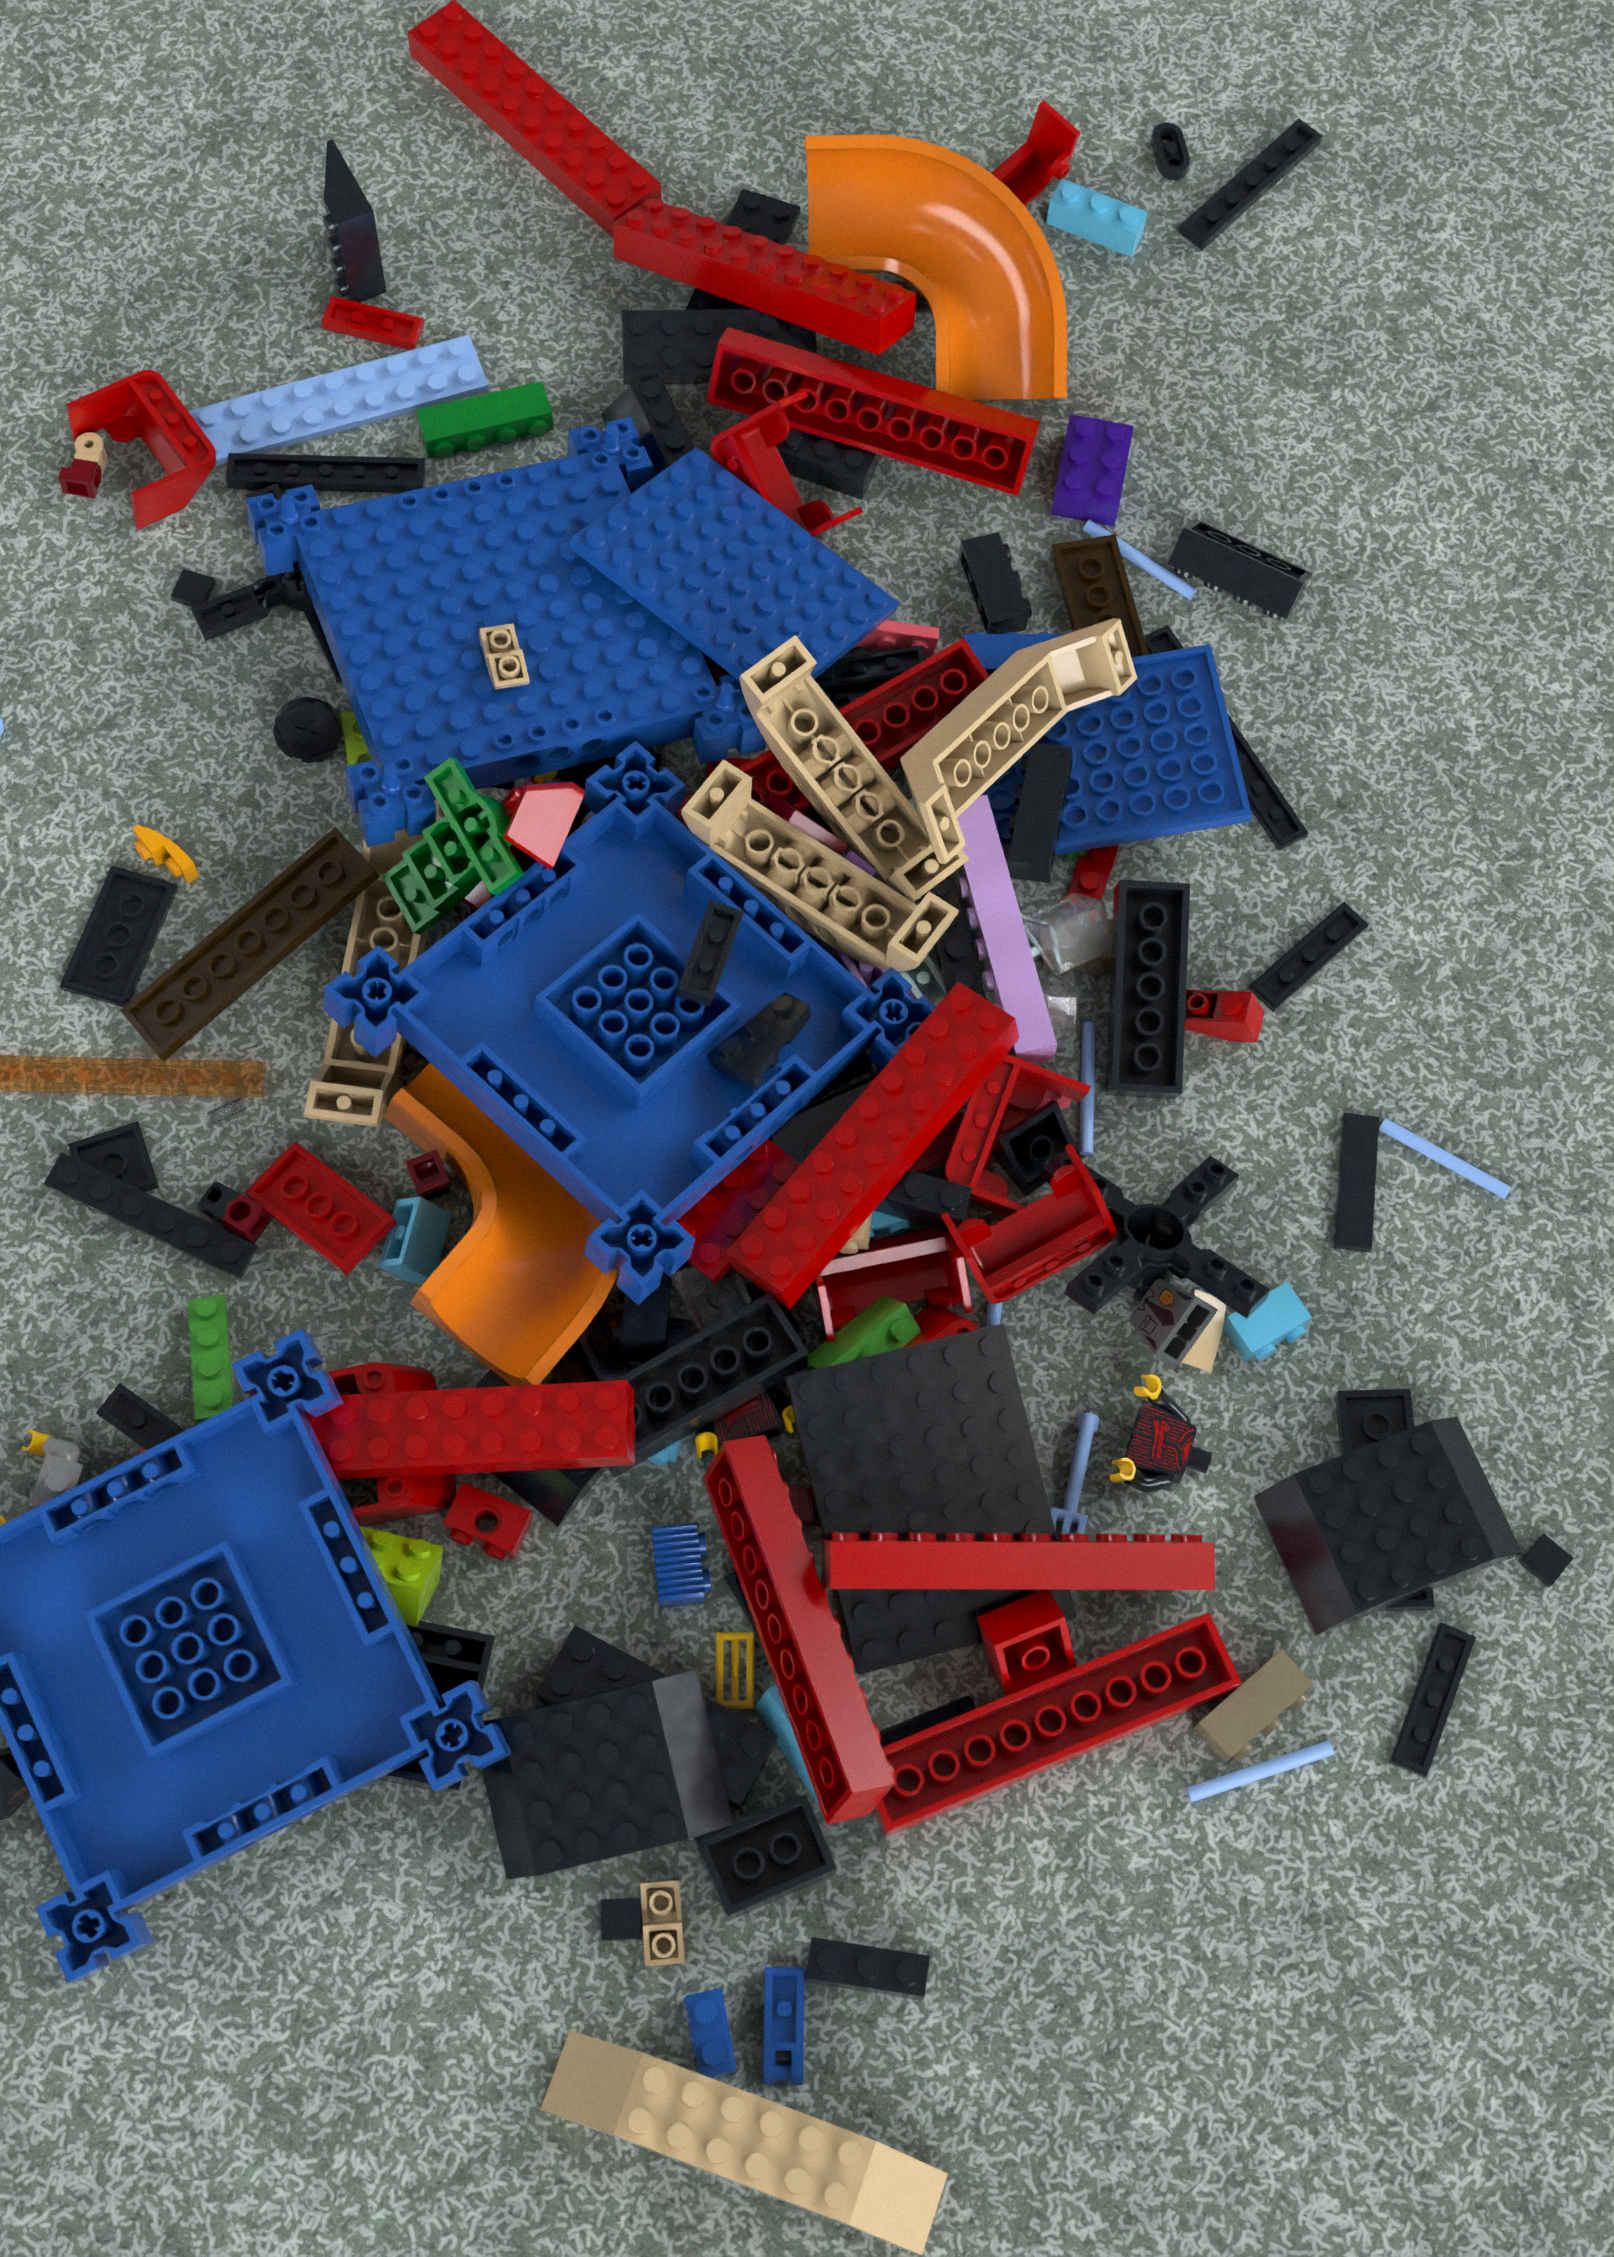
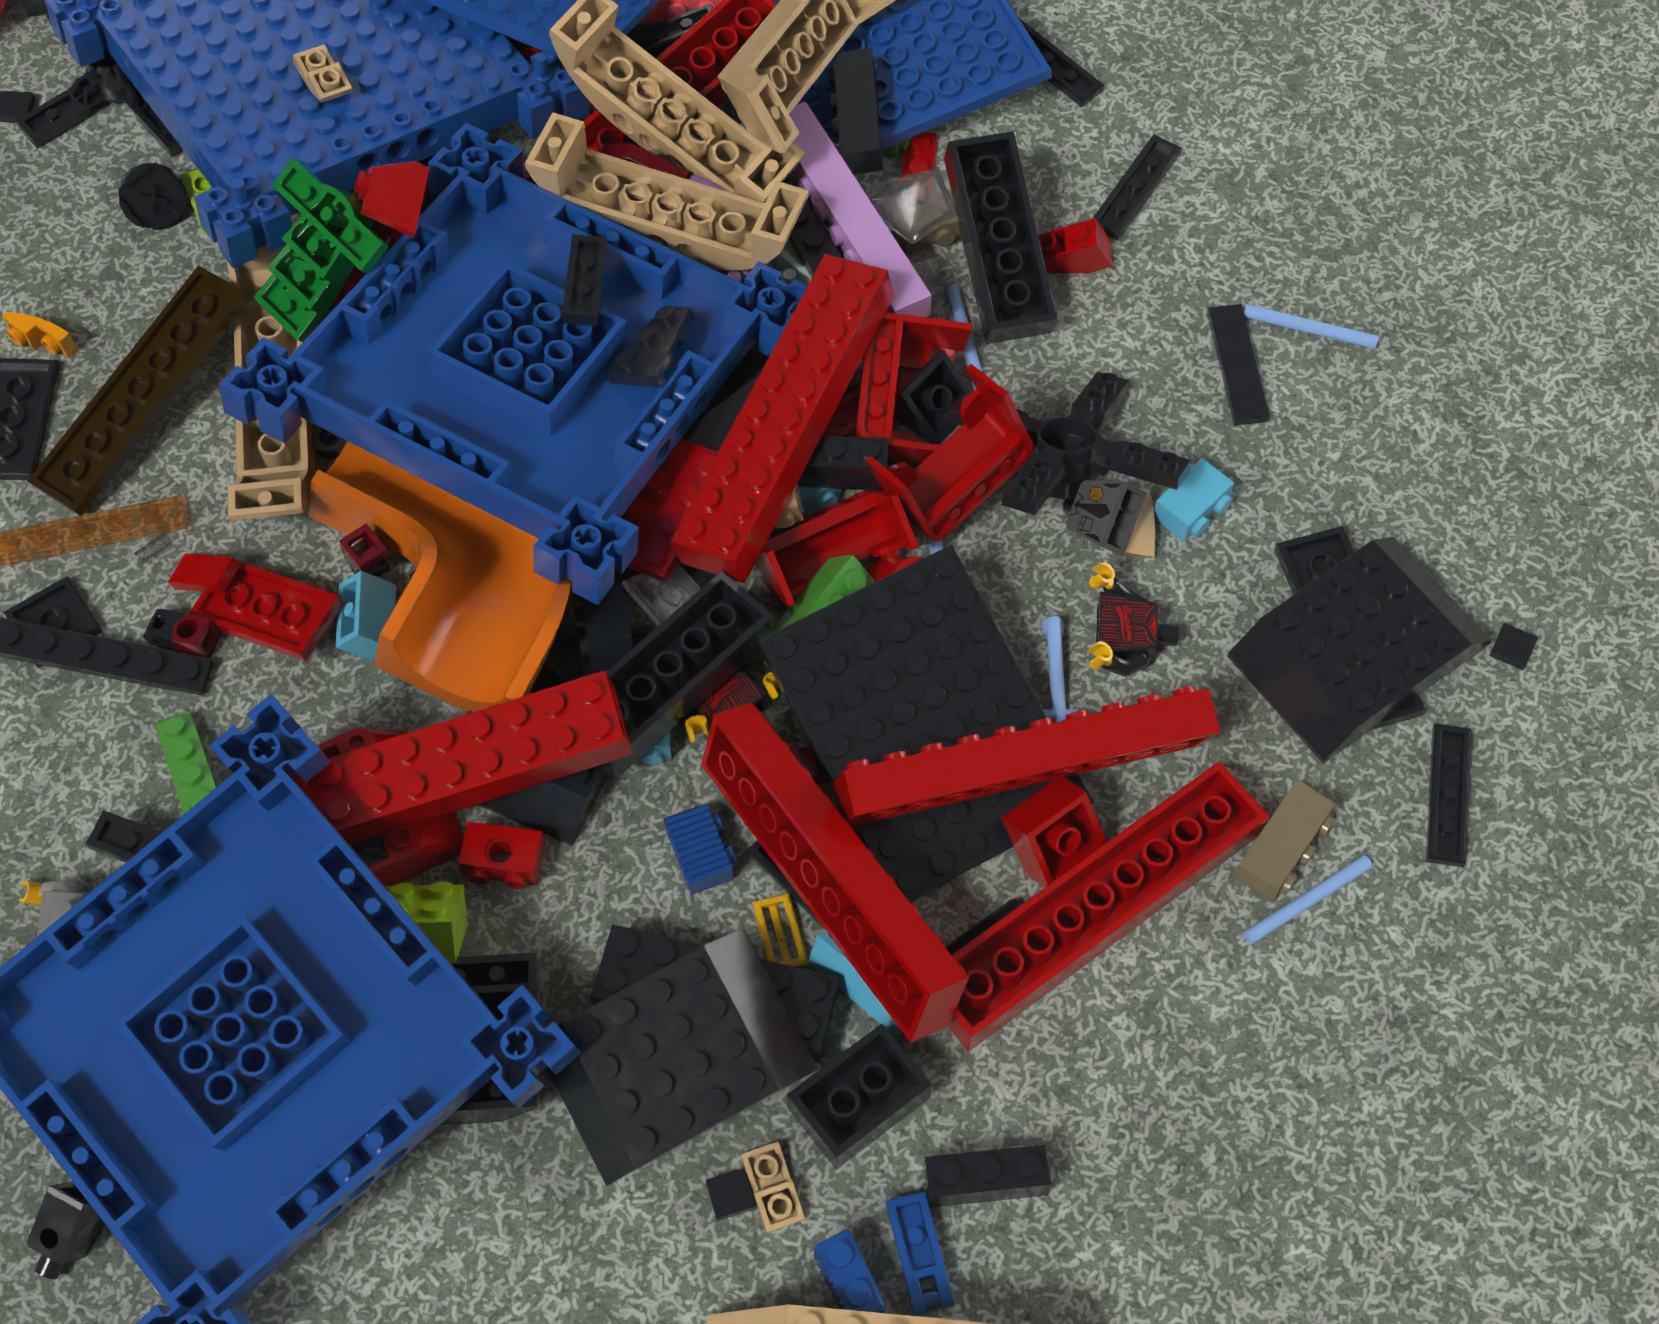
camera: 10 degrees left, 5 degrees down
(269, 1153) = (204, 573): none -> red tile

